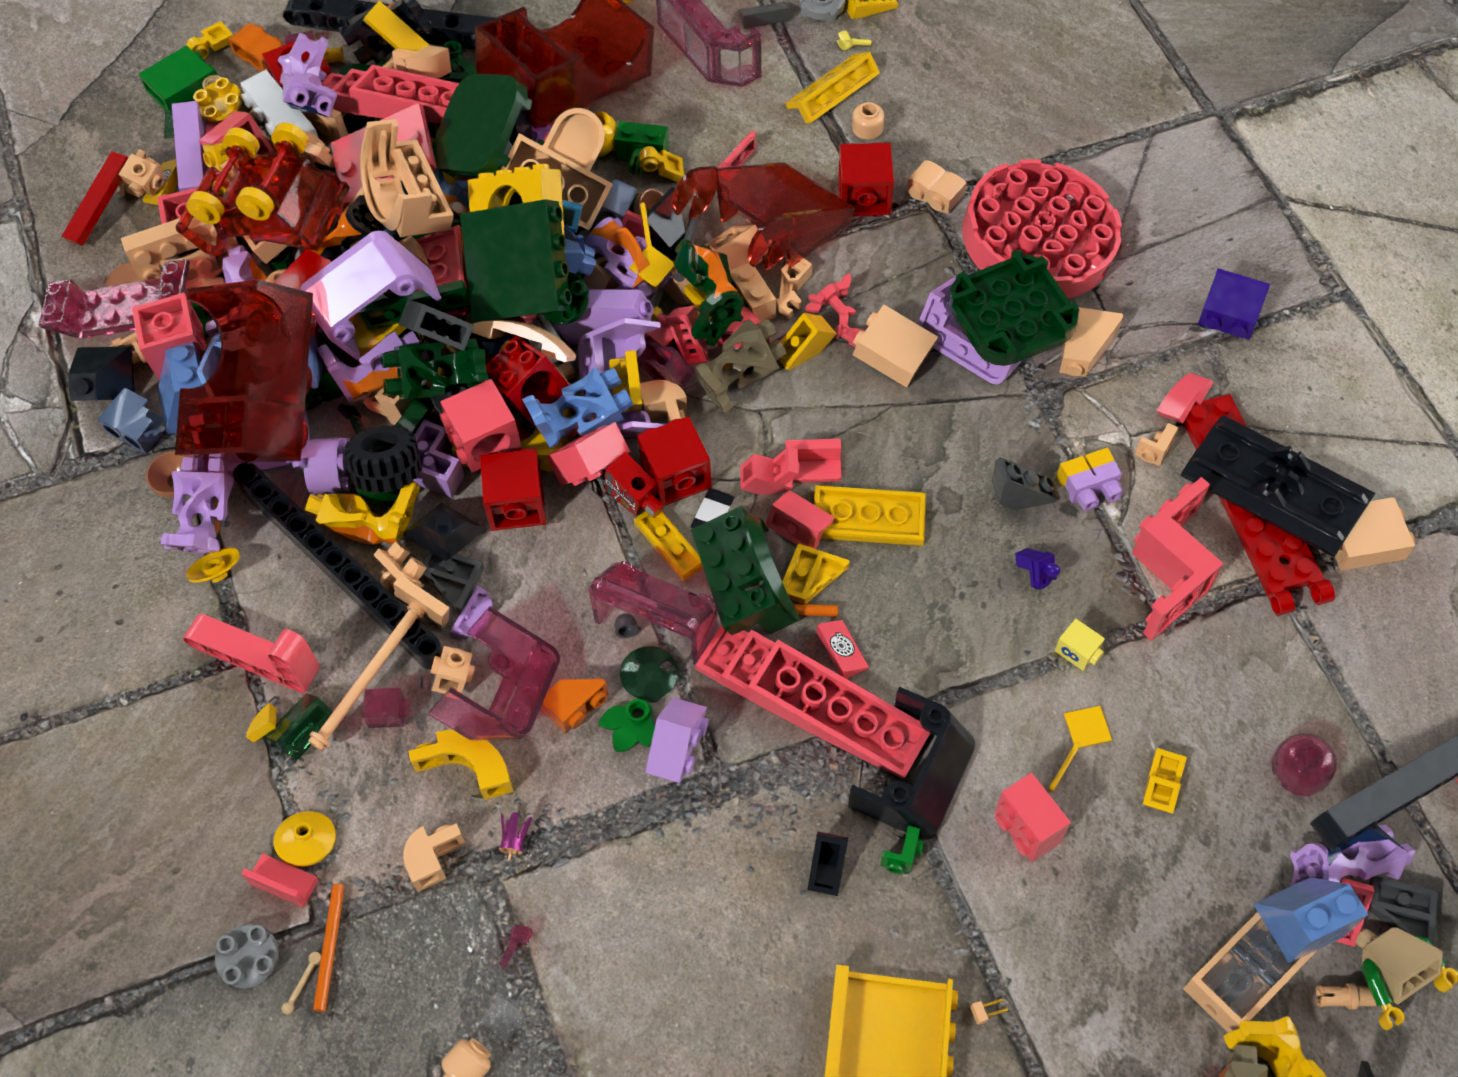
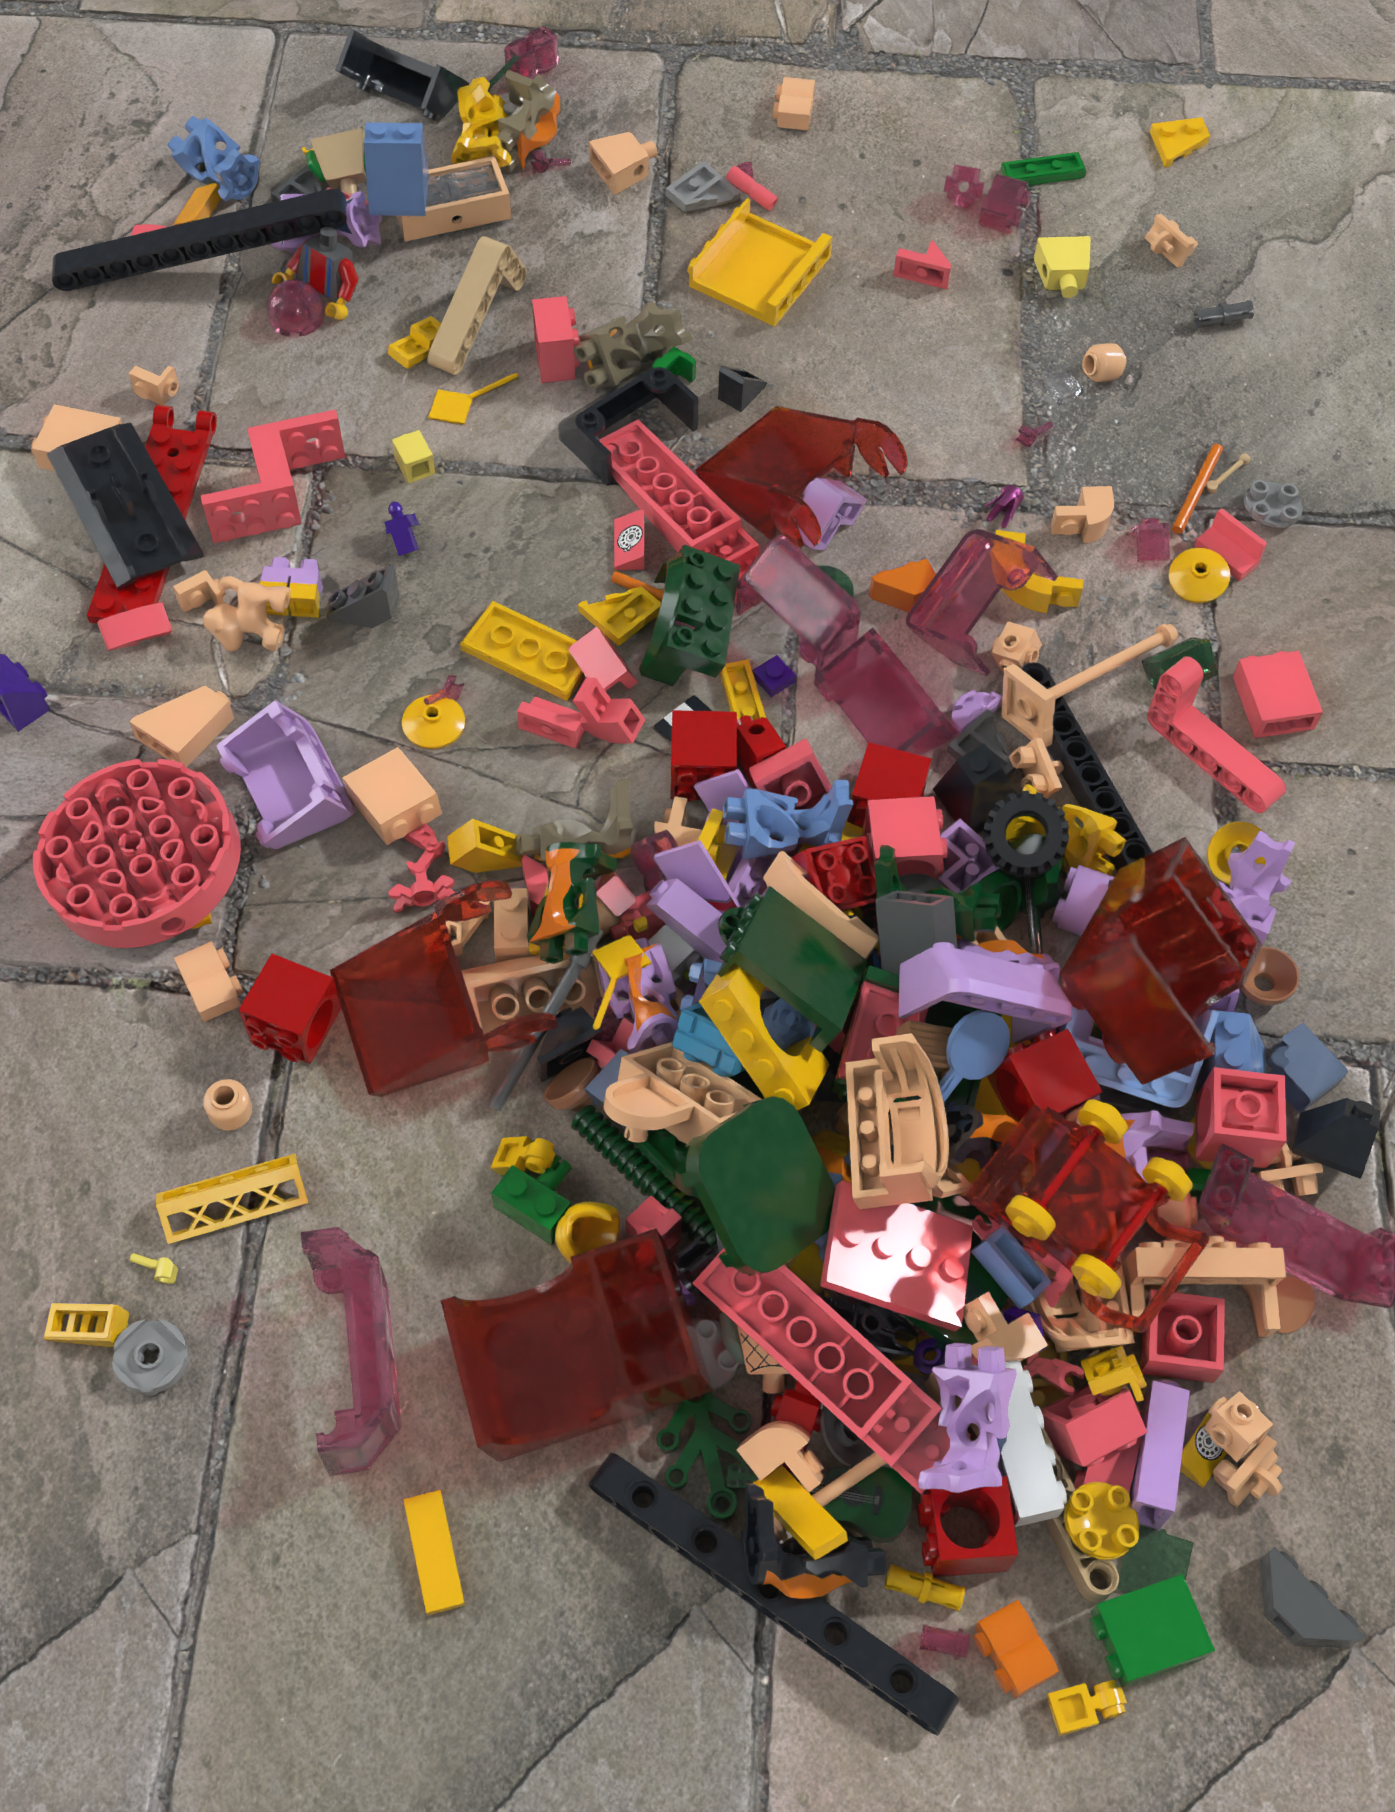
camera: 160 degrees left, 0 degrees up
(88, 120) = (1302, 1606): none -> dark grey slope
(95, 200) = (1308, 1429): red tile -> none
(205, 732) = (1277, 694): none -> coral brick
(262, 723) = (1217, 684): yellow tile -> none
(360, 857) = (1152, 540): none -> clear pink bracket
(385, 707) = (1091, 646): clear pink brick -> none
(537, 579) = (883, 697): none -> clear pink windscreen
(628, 729) = (864, 554): green plate -> none
(659, 569) = (774, 676): none -> dark purple plate
(740, 152) = (420, 1141): coral slope -> none
(744, 769) = (785, 451): none -> clear red piece
(764, 15) = (243, 1374): dark grey slope -> none
(905, 438) = (433, 731): none -> yellow dish
(912, 446) = (449, 691): none -> clear pink hand
(969, 830) = (607, 345): none -> dark tan hips
(980, 1014) = (677, 259): light nougat piece -> none
(1012, 309) = (255, 733): dark green tile -> none
(1108, 427) = (231, 623): none -> light nougat animal
(1137, 835) = (488, 267): none -> tan beam
(1296, 807) = (327, 268): none -> torso
(1357, 615) = (154, 387): none -> light nougat bracket

